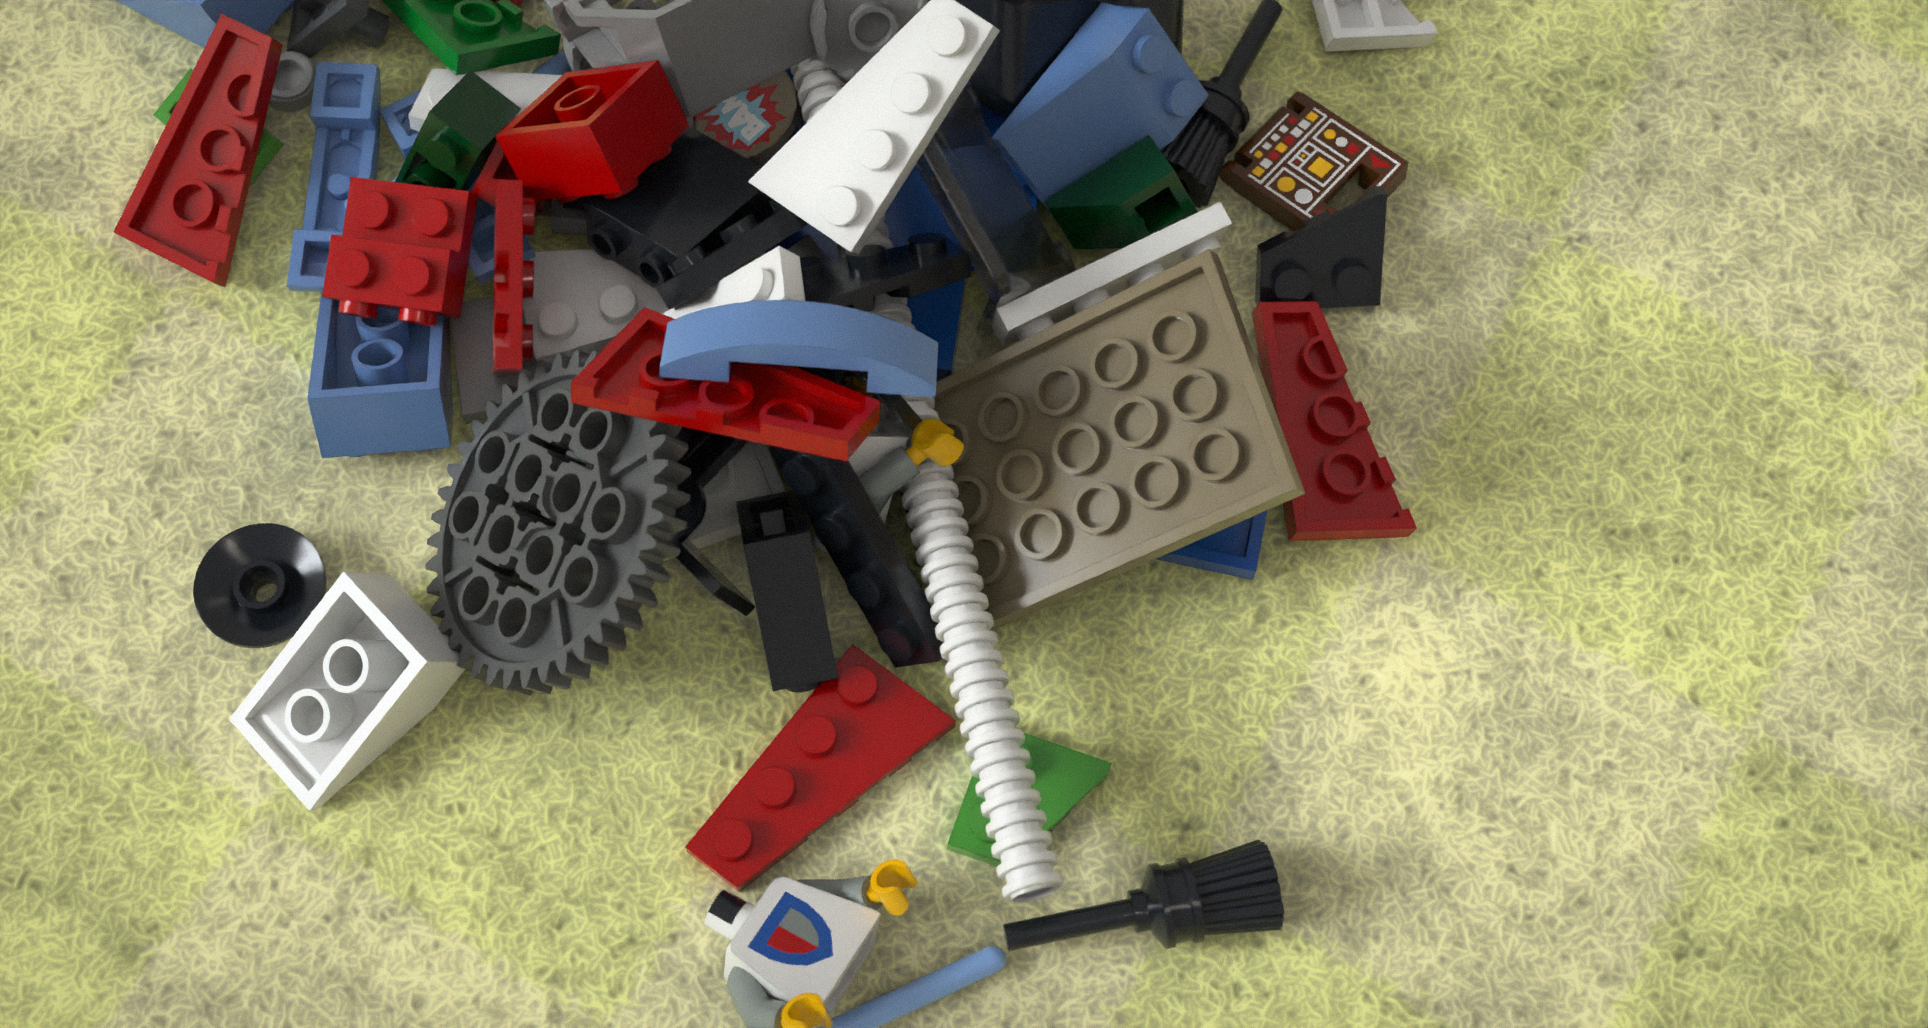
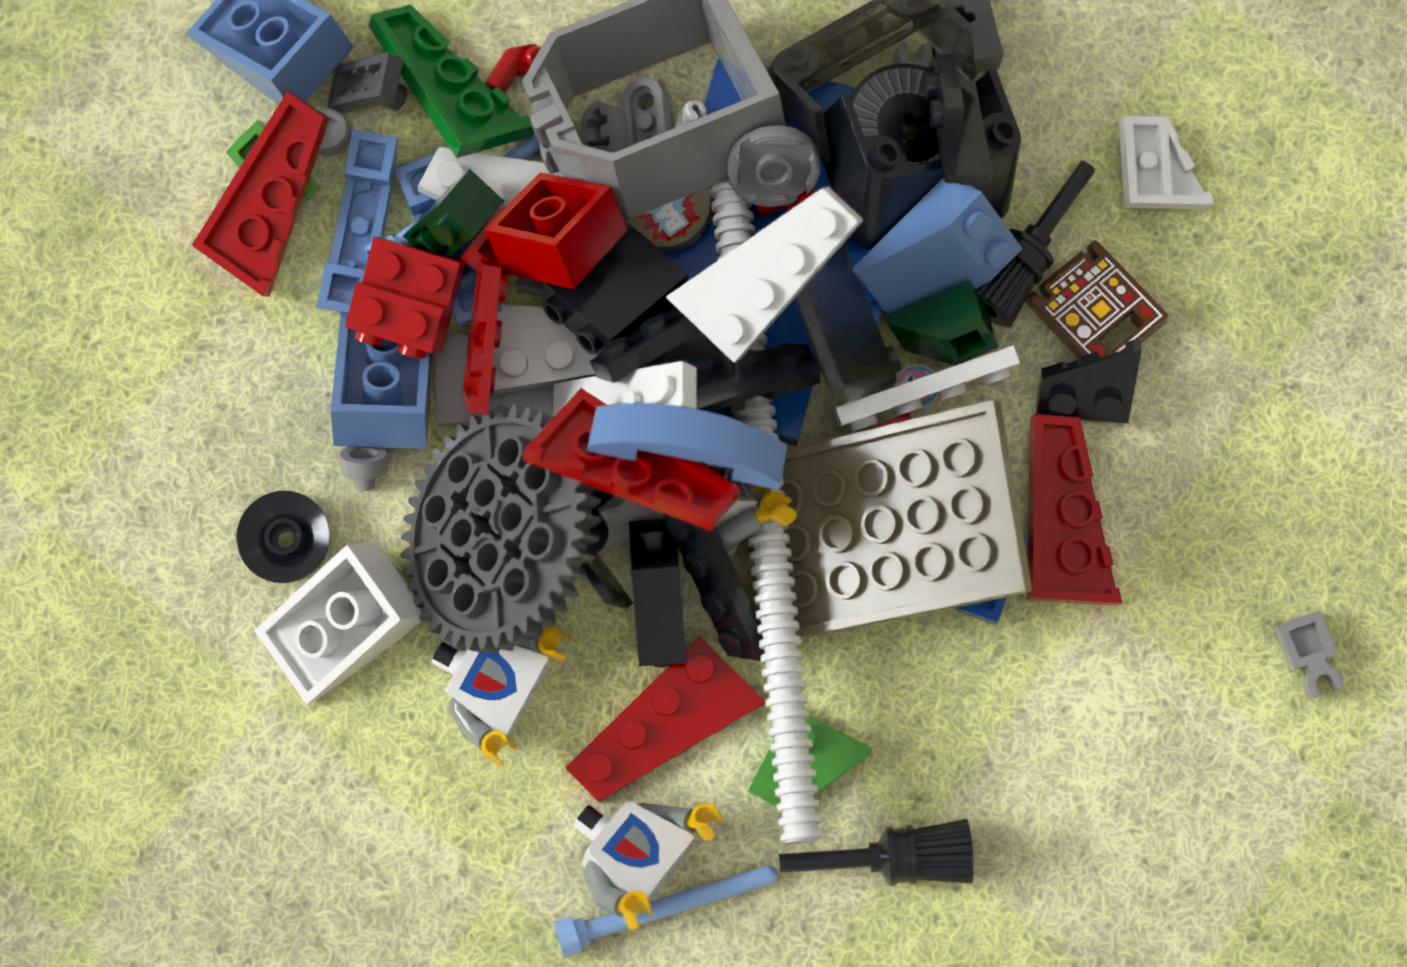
camera: 10 degrees right, 10 degrees up
(366, 479) = (364, 465): none -> light grey tile
(577, 741) = (495, 689): none -> torso
(1676, 551) = (1307, 646): none -> light grey plate

